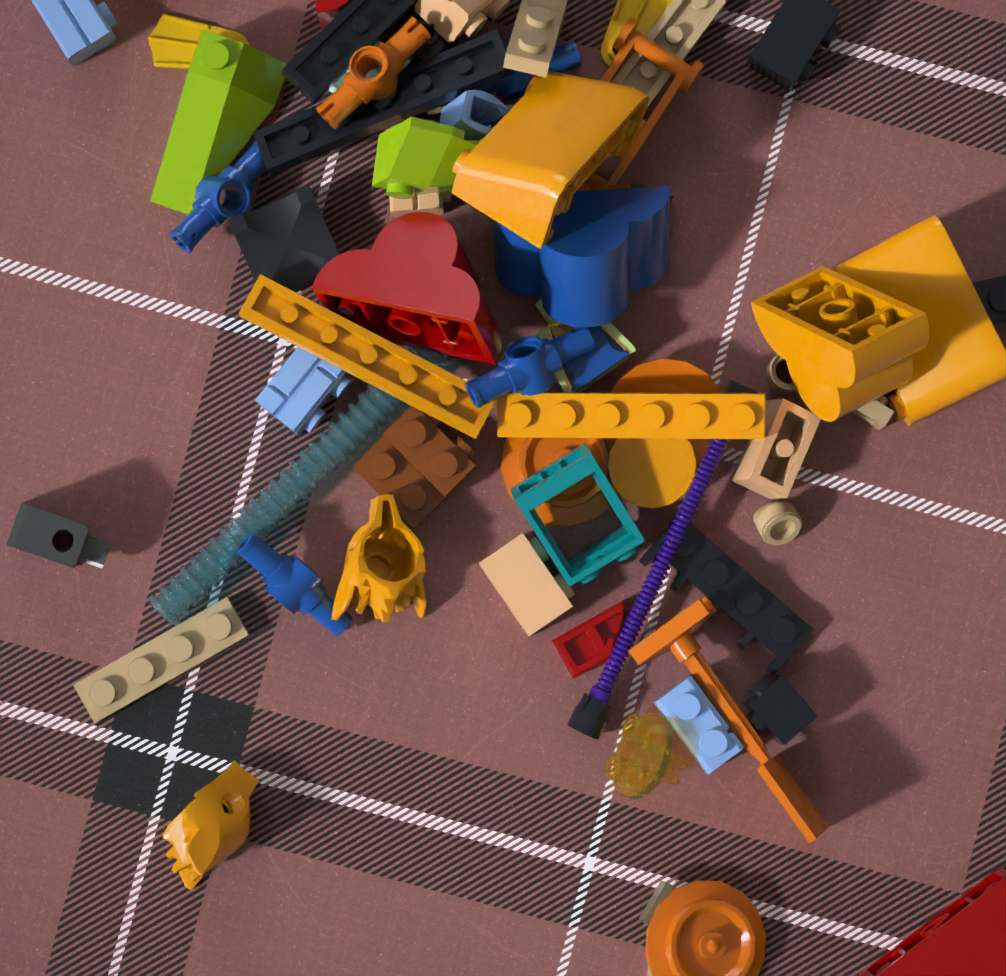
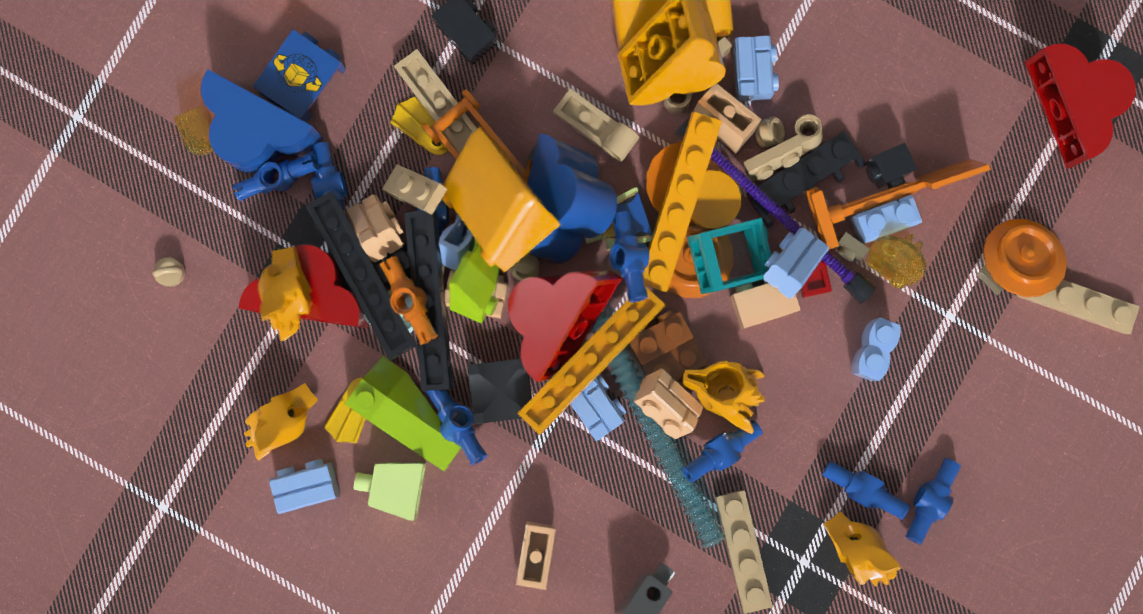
camera: 70 degrees left, 0 degrees up
(69, 363) = (536, 555): none -> light nougat brick
(106, 137) = (394, 487): none -> yellowish green torso
(300, 808) = (866, 490): none -> blue pin
(312, 909) = (933, 501): none -> blue pin
(337, 486) = (668, 404): none -> light nougat brick
(473, 227) = (525, 268): none -> tan tile
(492, 762) = (874, 356): none -> light blue brick
(594, 606) = (795, 263): none -> light blue brick
(642, 686) = (851, 248): none -> dark tan plate
(711, 266) = (595, 125): none -> tan plate
(754, 554) = (787, 152): none -> tan plate
(863, 470) = (754, 68): none -> light blue brick

